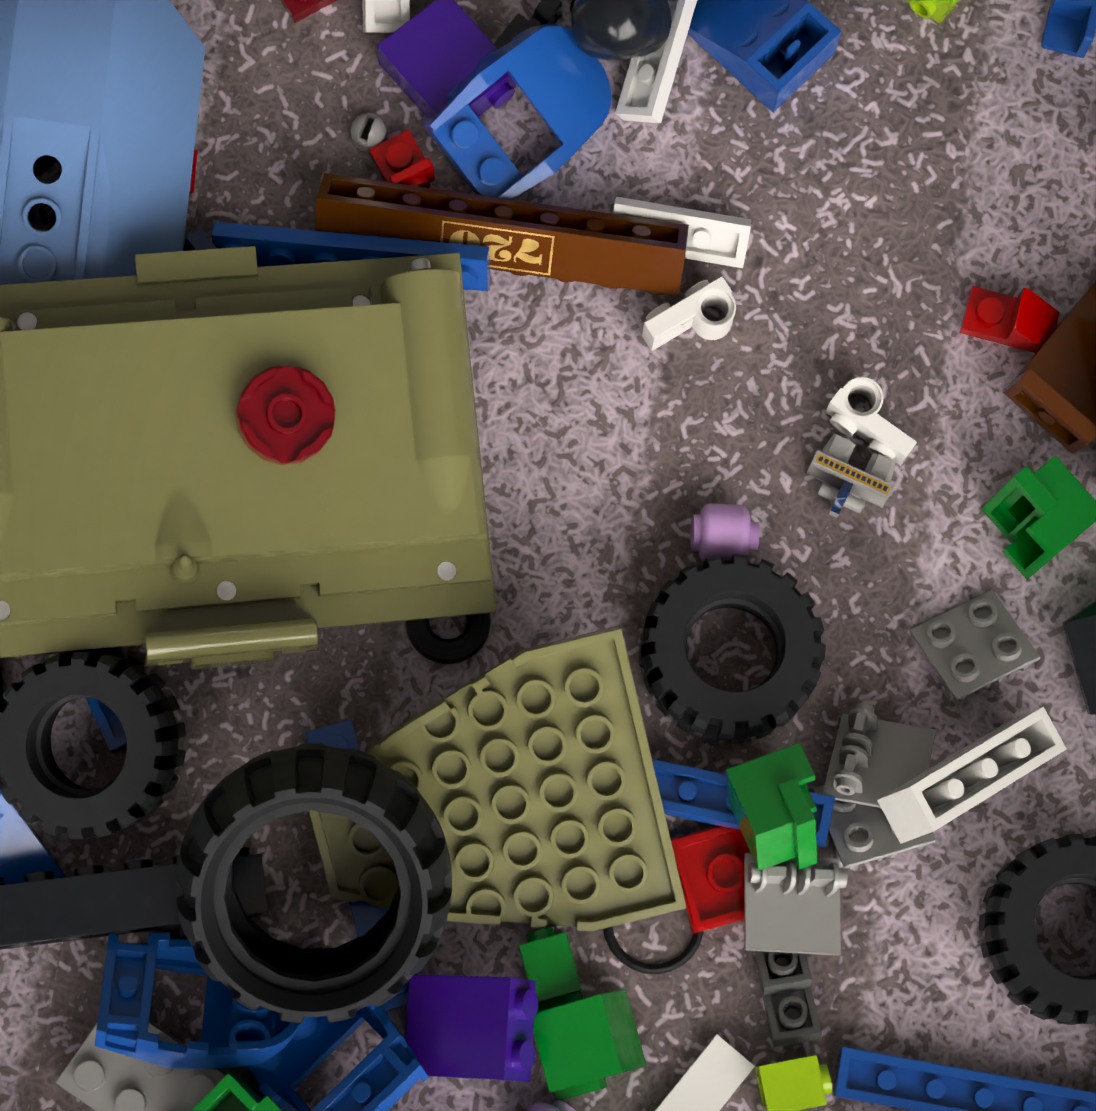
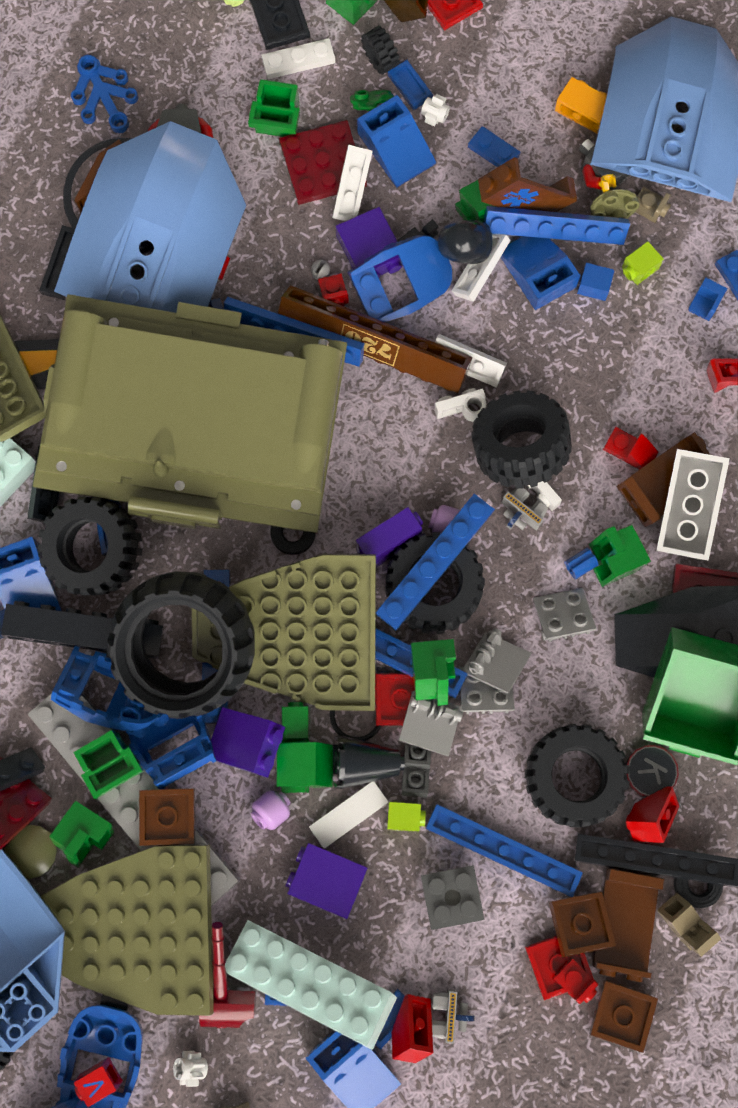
camera: 20 degrees right, 0 degrees up
(285, 415) = (231, 401): dark red tile -> none
(631, 584) = (390, 535): none -> dark purple brick
(691, 1006) = (364, 762): none -> black cone
(726, 612) = (435, 561): none -> blue plate
(809, 303) = (519, 414): none -> black tyre
(868, 35) = (595, 281): none -> blue panel
(971, 775) = (541, 680): white brick -> none
(979, 546) = (581, 563): none -> blue piece

